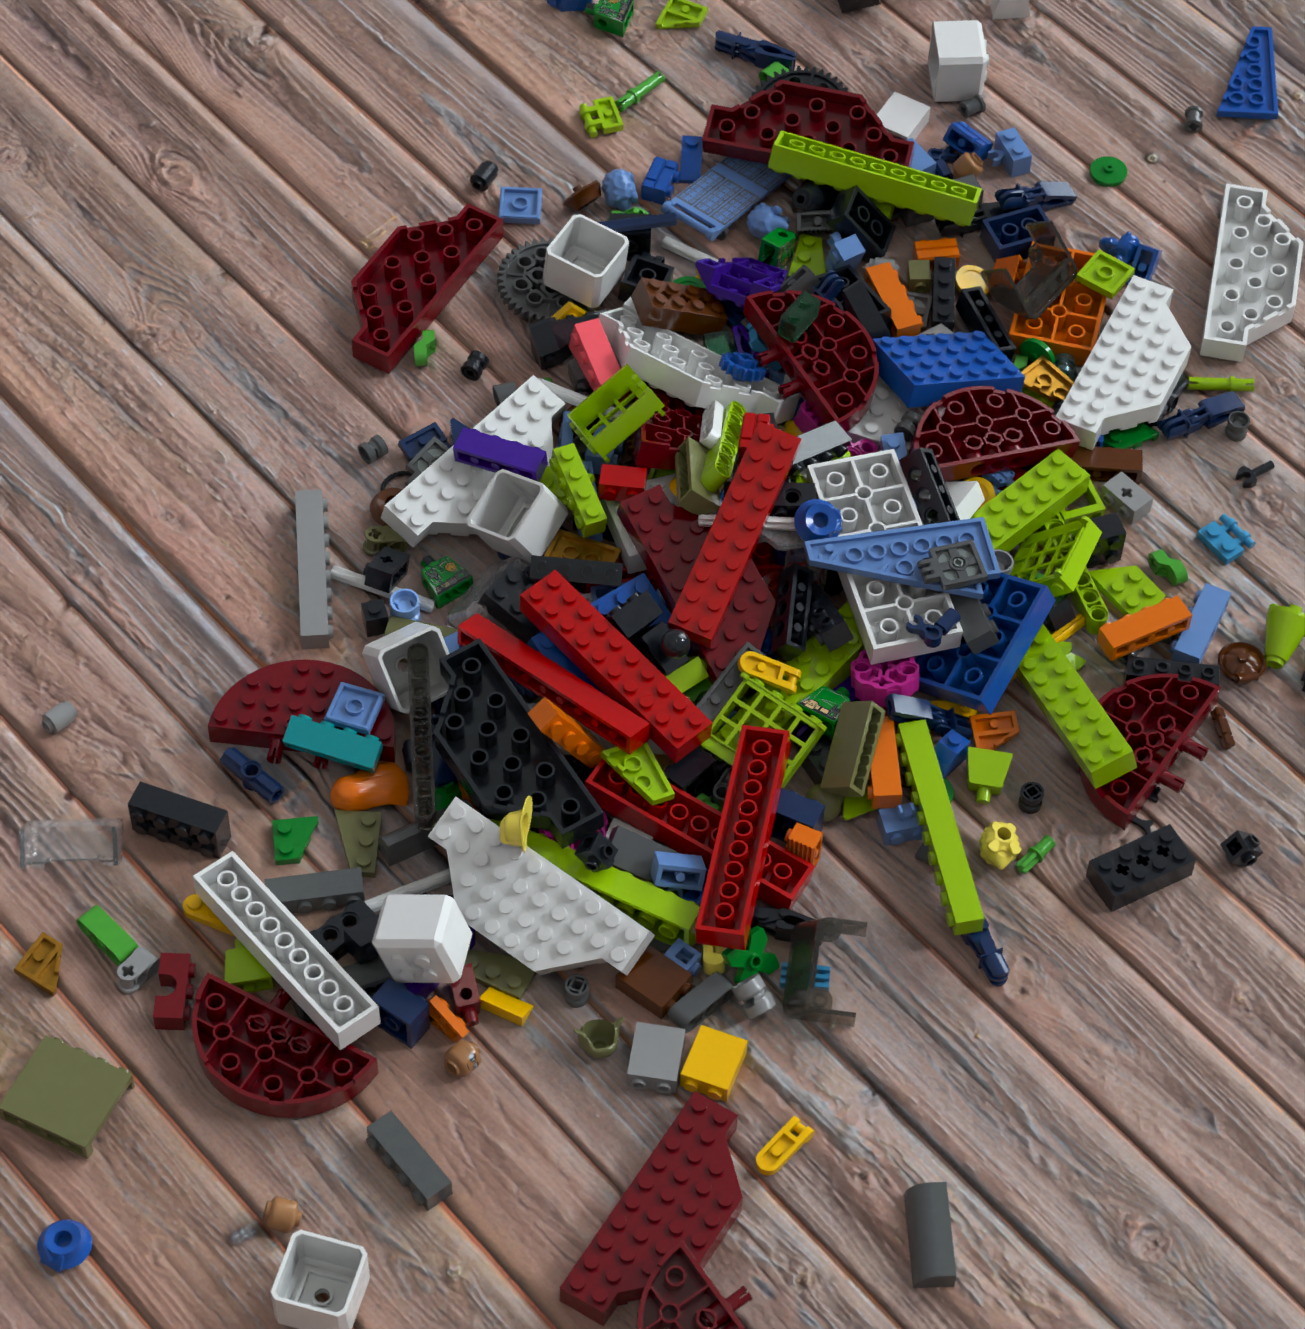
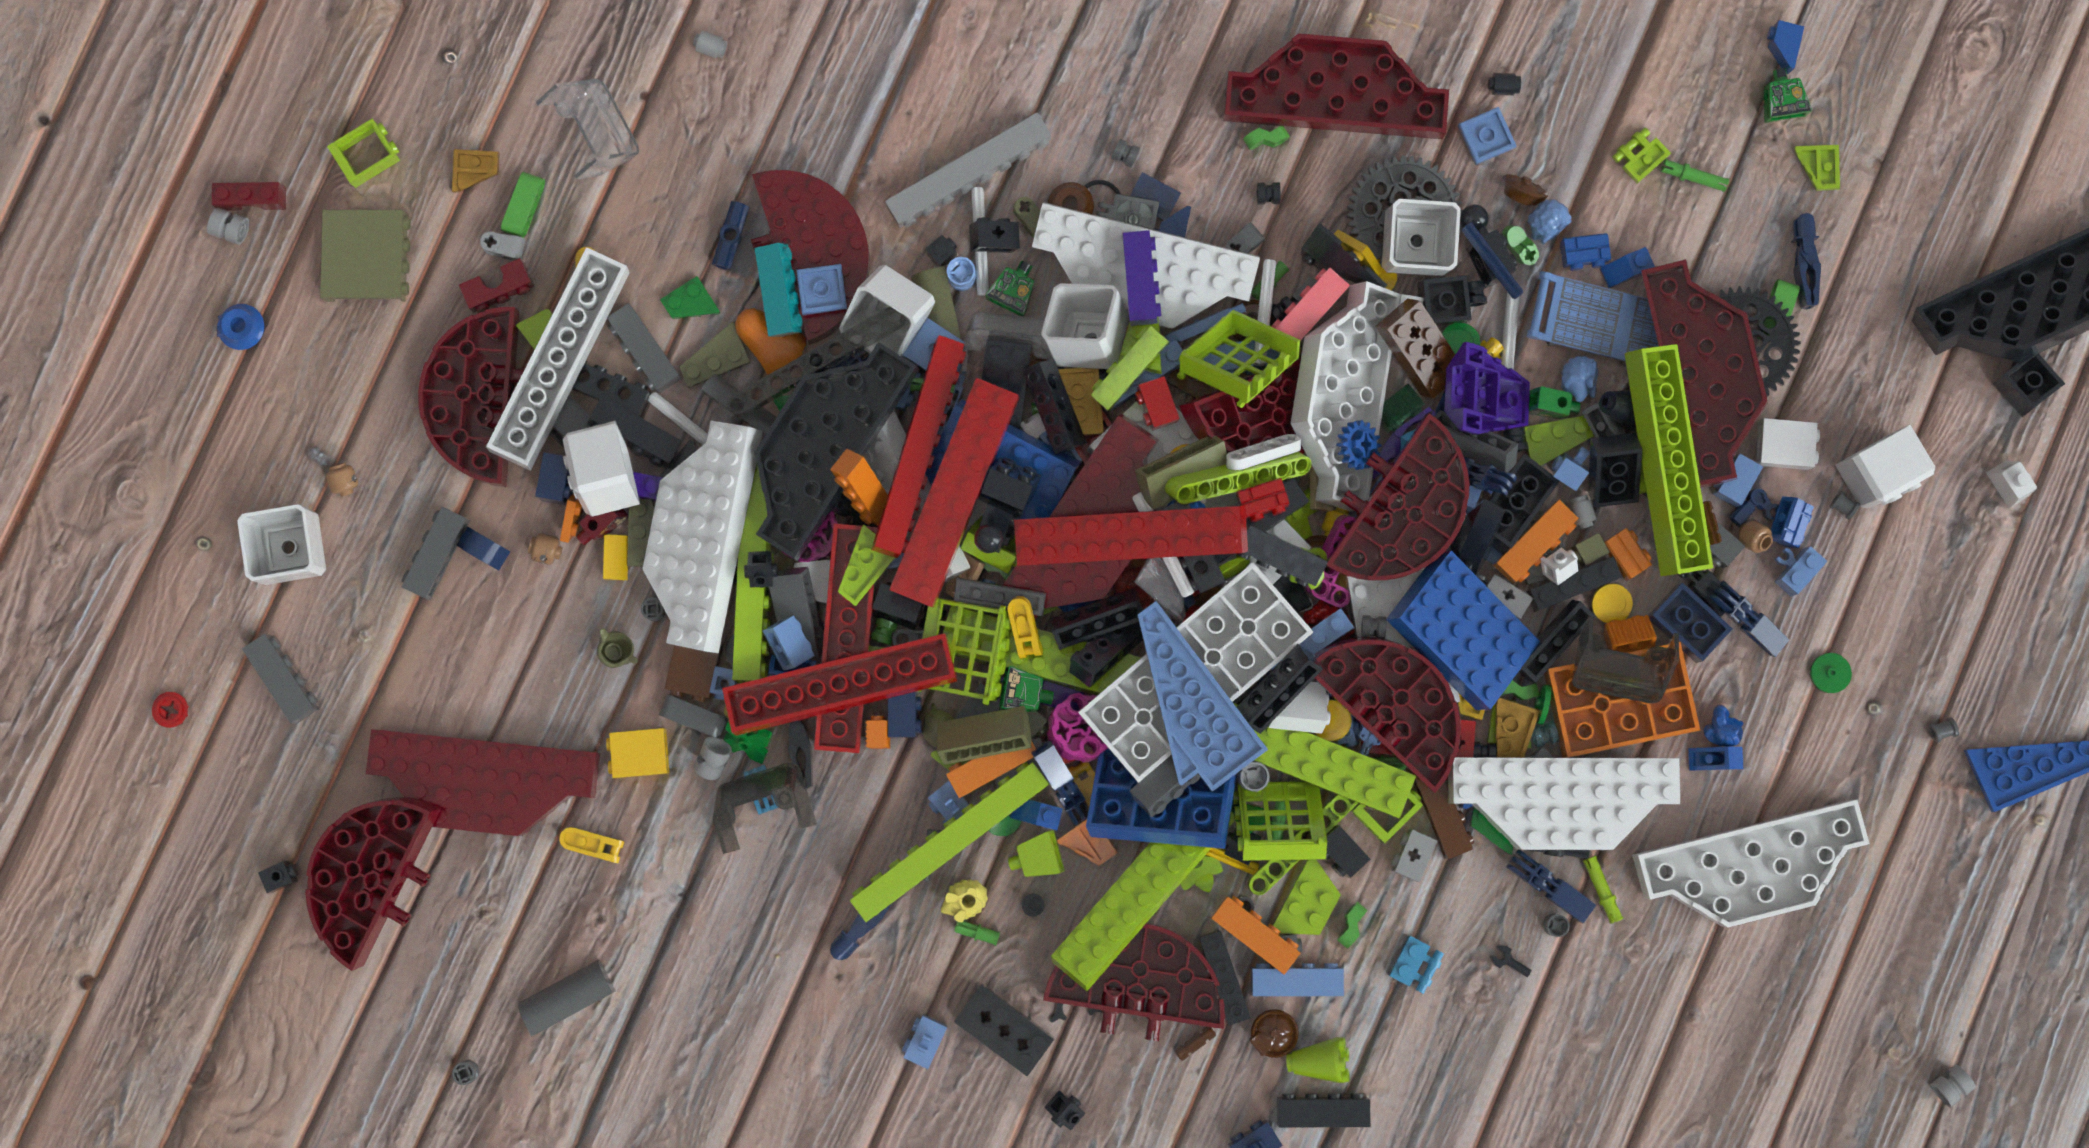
camera: 65 degrees right, 30 degrees up
(179, 820) = (650, 202): black brick -> none
(429, 1109) = (483, 548): none -> dark blue brick
(516, 825) = (735, 494): light yellow piece -> none
(655, 1057) = (621, 703): light grey panel -> none
(798, 316) = (1423, 475): clear green brick -> none
(817, 520) = (1186, 602): blue piece -> none
(919, 287) = (1559, 565): none -> white brick
(933, 633) = (1131, 764): dark blue bar -> none
(953, 566) = (1192, 748): dark grey piece -> none
(1105, 274) = (1666, 730): lime plate -> none
(1122, 938) = (925, 1041): none -> medium blue brick

